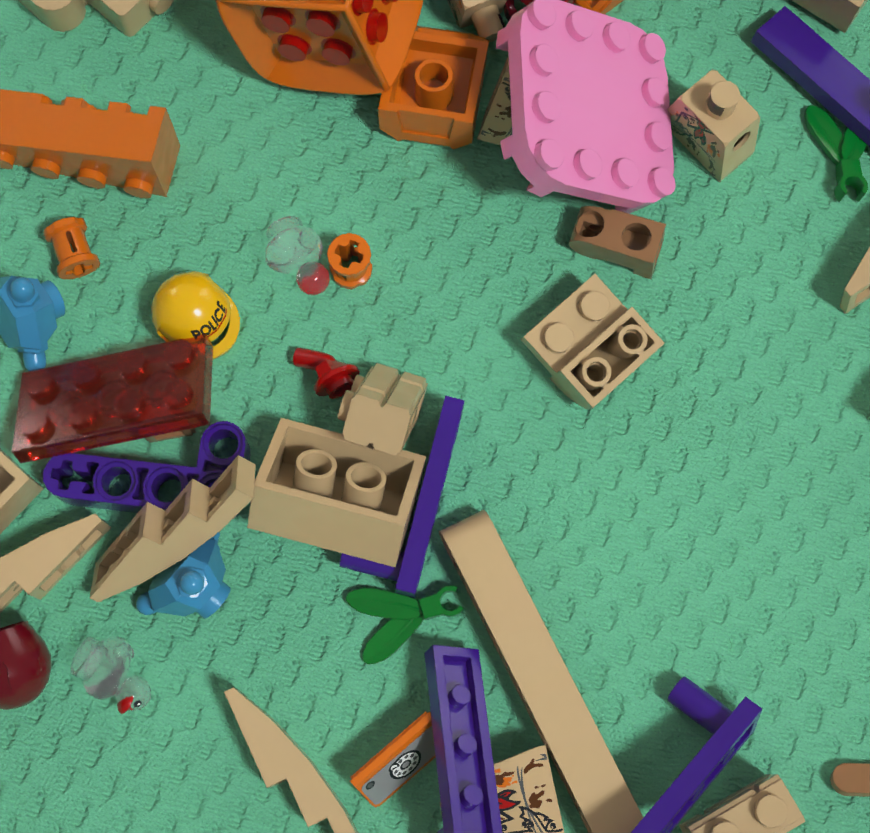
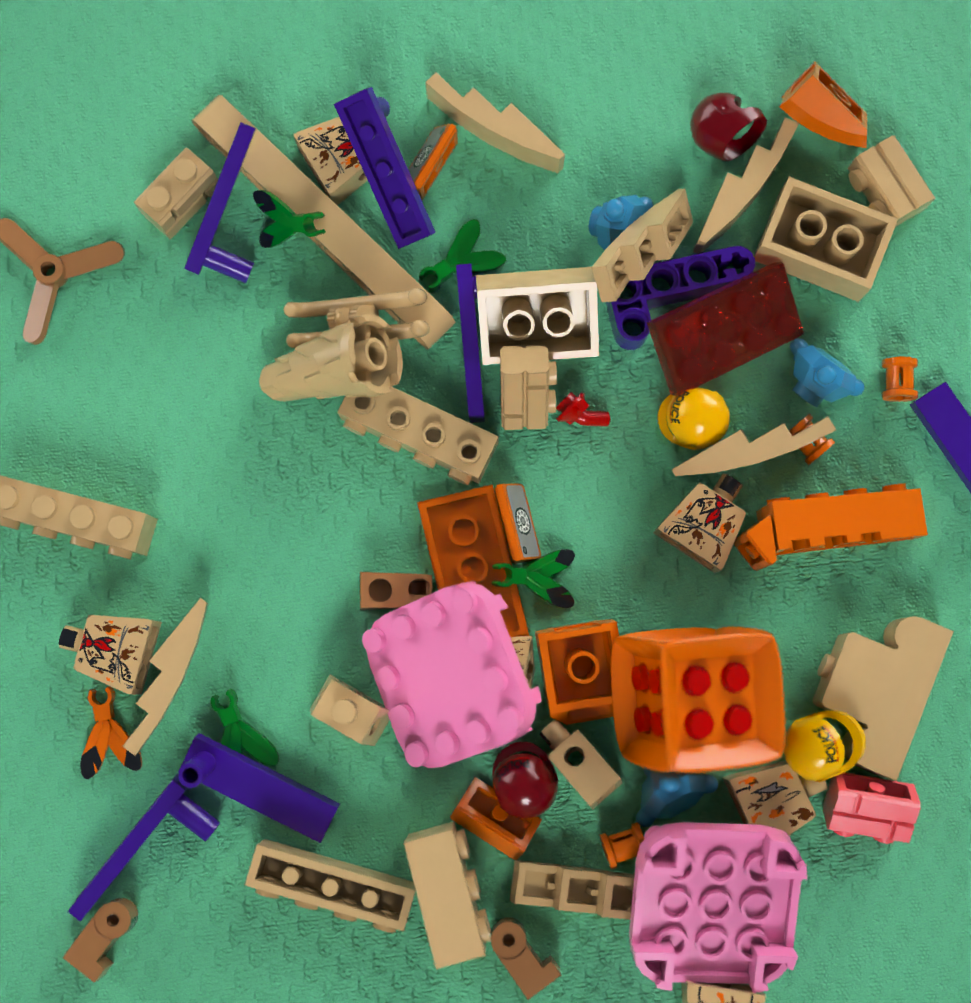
camera: 165 degrees right, 5 degrees up
(104, 672) = (653, 146): clear animal -> none
(132, 242) = (739, 452): none -> tan slope
(181, 144) = (758, 544): none -> orange slope
(232, 194) = (705, 523): none -> tan torso
(297, 250) = (640, 496): clear animal -> none
(343, 249) = (603, 493): orange bush -> none
(448, 201) = (536, 577): none -> green piece
(448, 270) = (517, 523): none -> slope
(513, 249) = (464, 544): none -> orange tile
(528, 415) = (423, 430): none -> tan brick
(558, 567) = (342, 310): none -> tan piece
(591, 343) = (388, 497): tan brick -> none
(599, 497) = (342, 361): none -> tan cone
(614, 728) = (286, 220): none -> green piece

